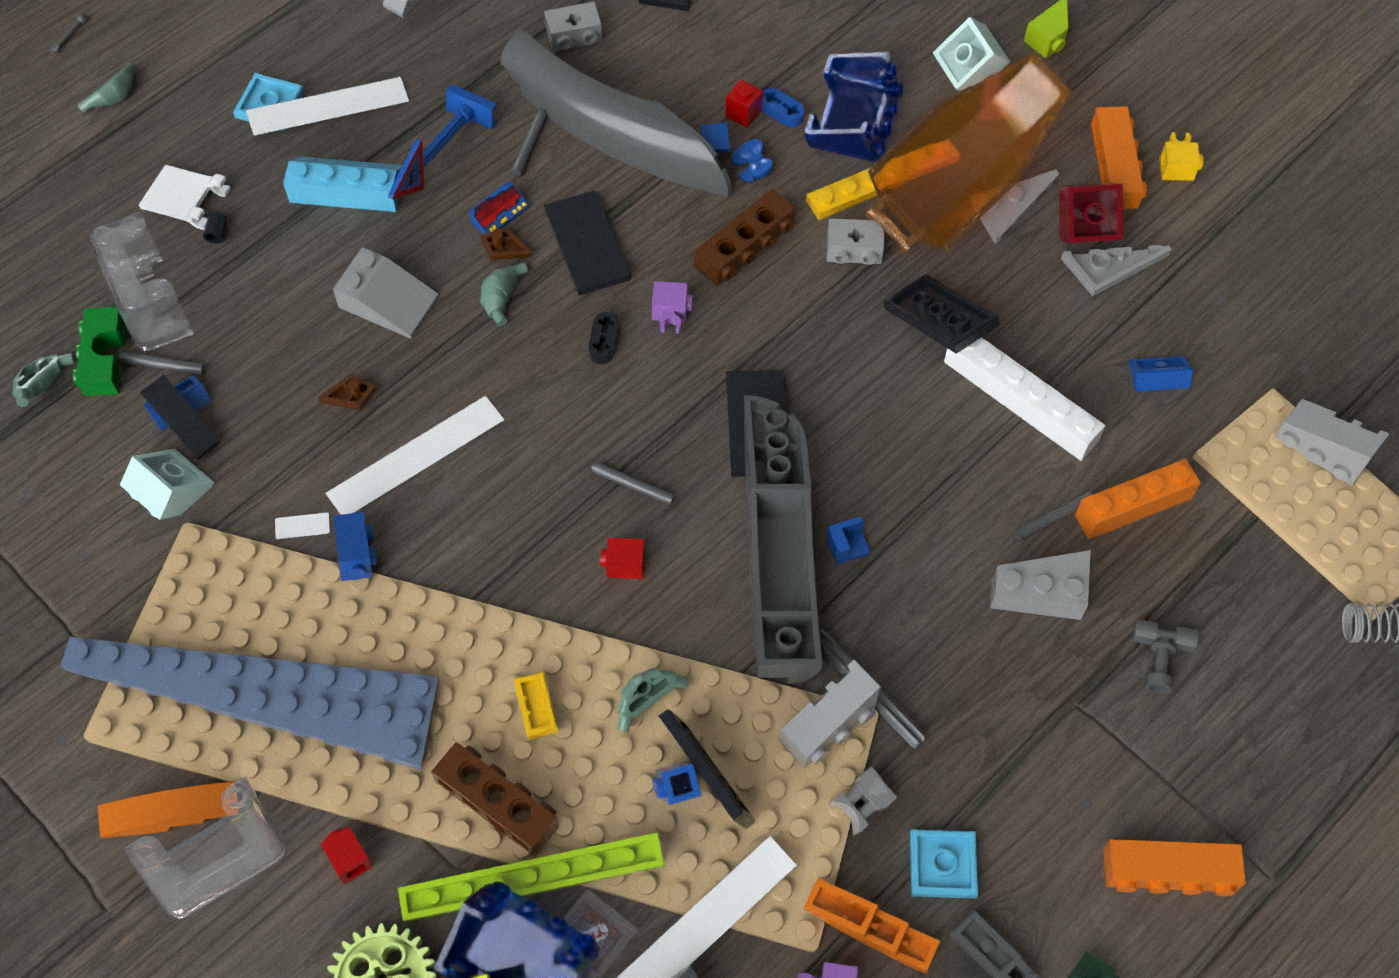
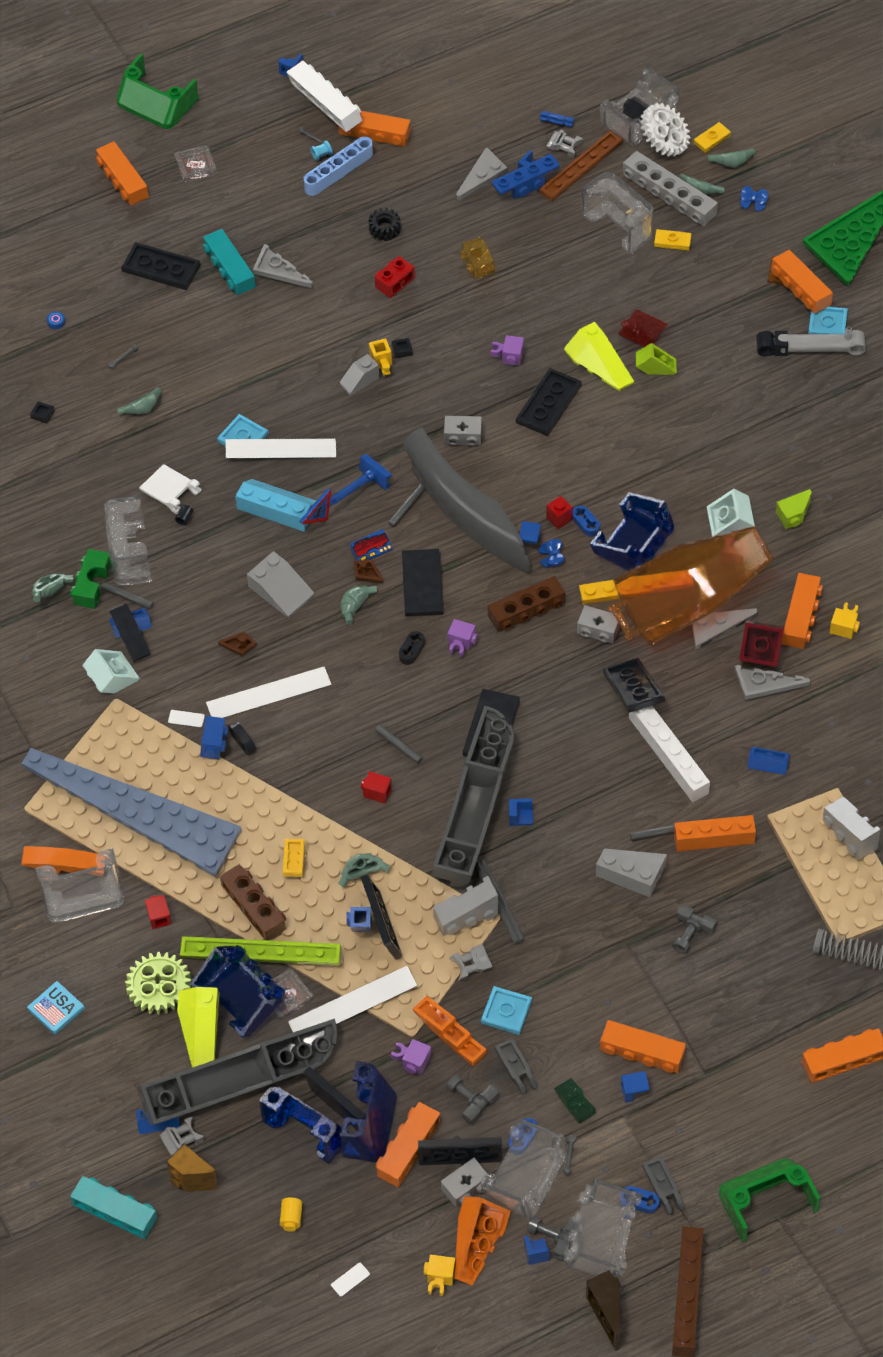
camera: 20 degrees right, 5 degrees down
(397, 535) = (242, 738): none -> black beam
(1189, 937) = (634, 1084): none -> blue panel

